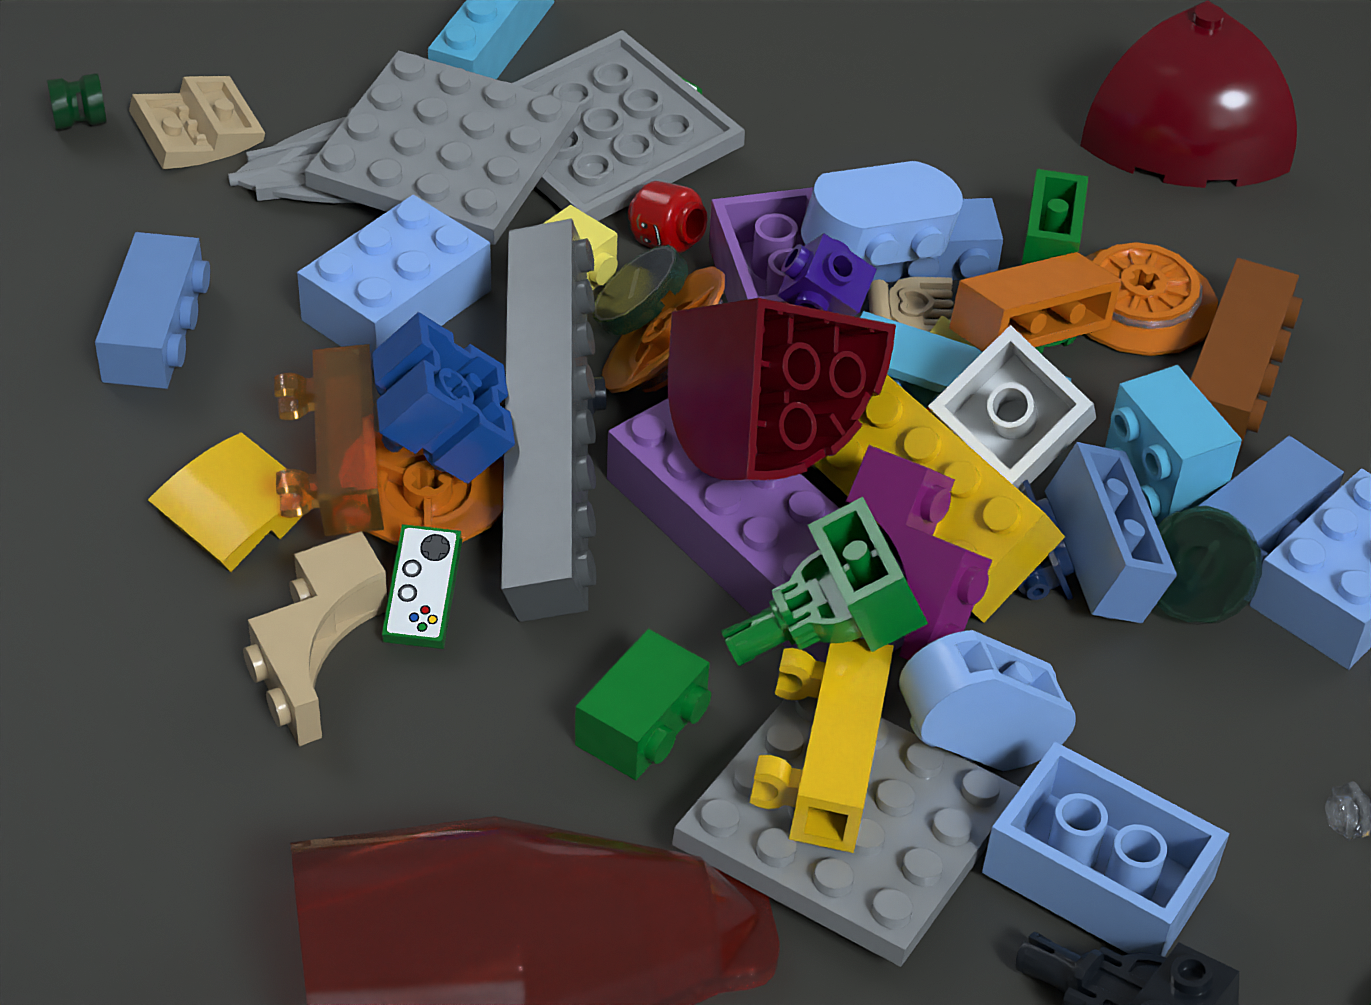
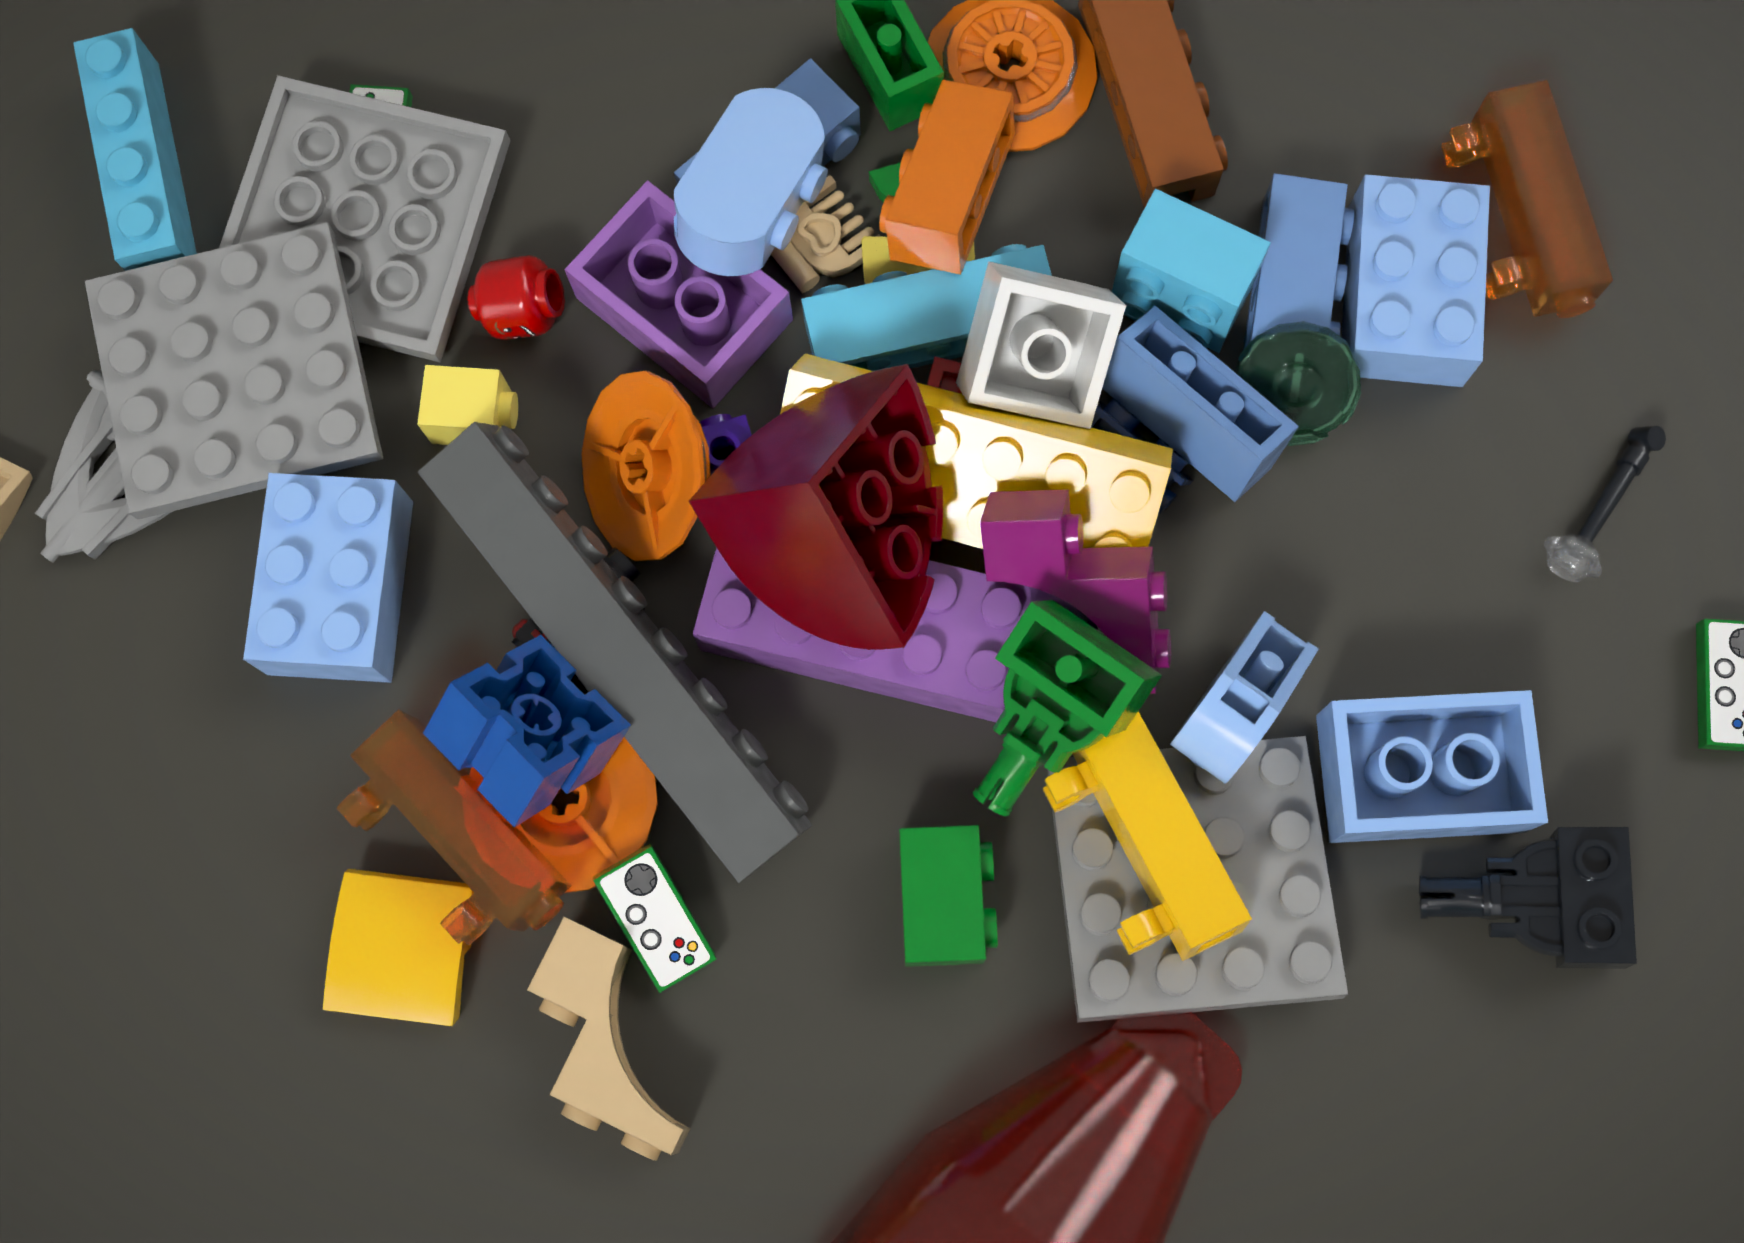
camera: 30 degrees left, 30 degrees up
(152, 310) = (126, 787): medium blue brick -> none
(637, 289) = (572, 420): tile -> none
(826, 277) = (771, 321): dark purple brick -> none

